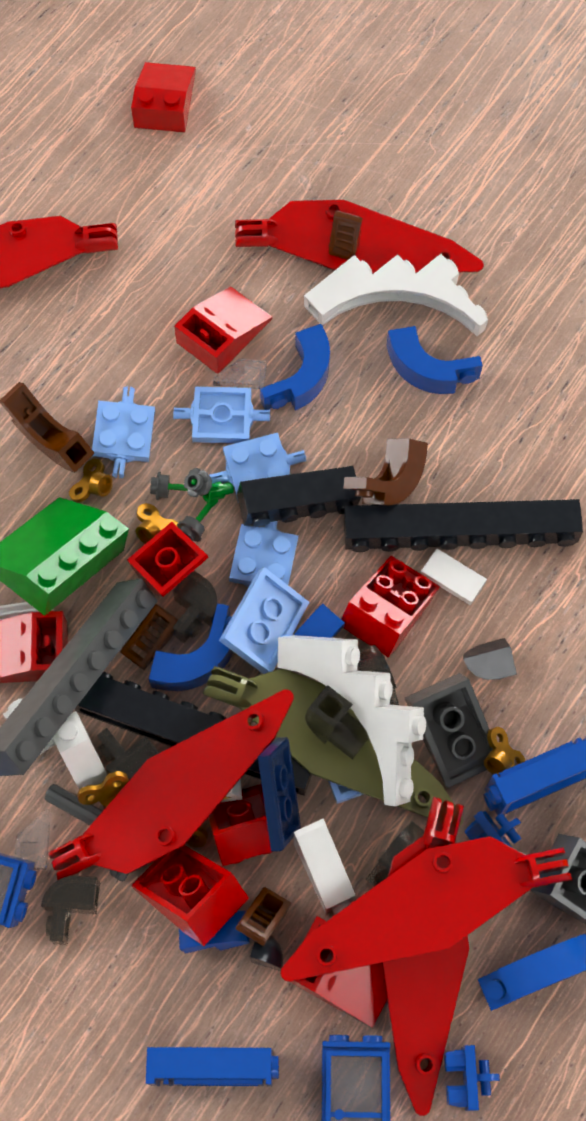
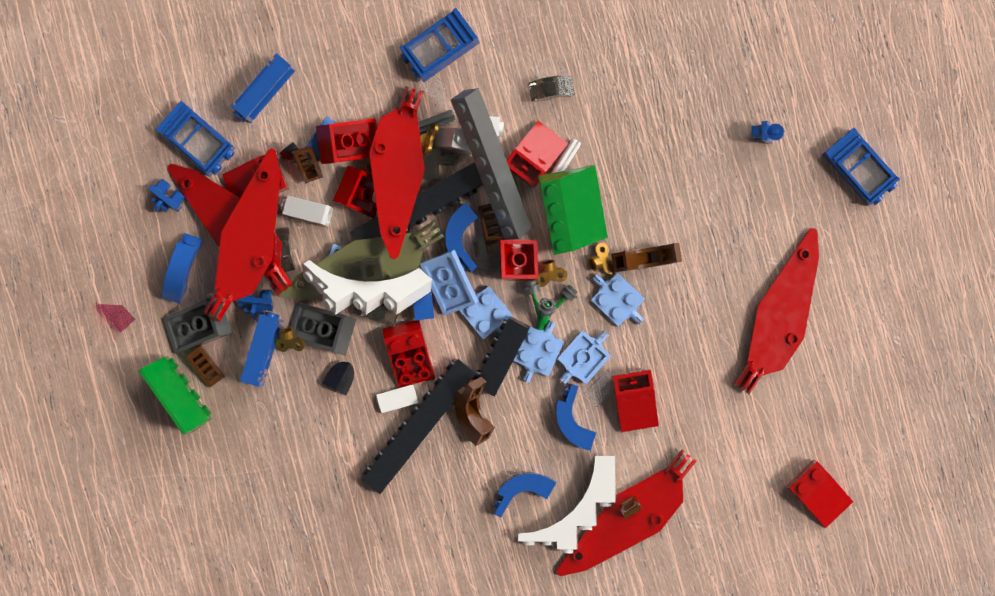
camera: 130 degrees right, 20 degrees up
(65, 897) = (394, 83): clear smoke brick -> none
(279, 793) = (353, 215): dark blue tile -> none

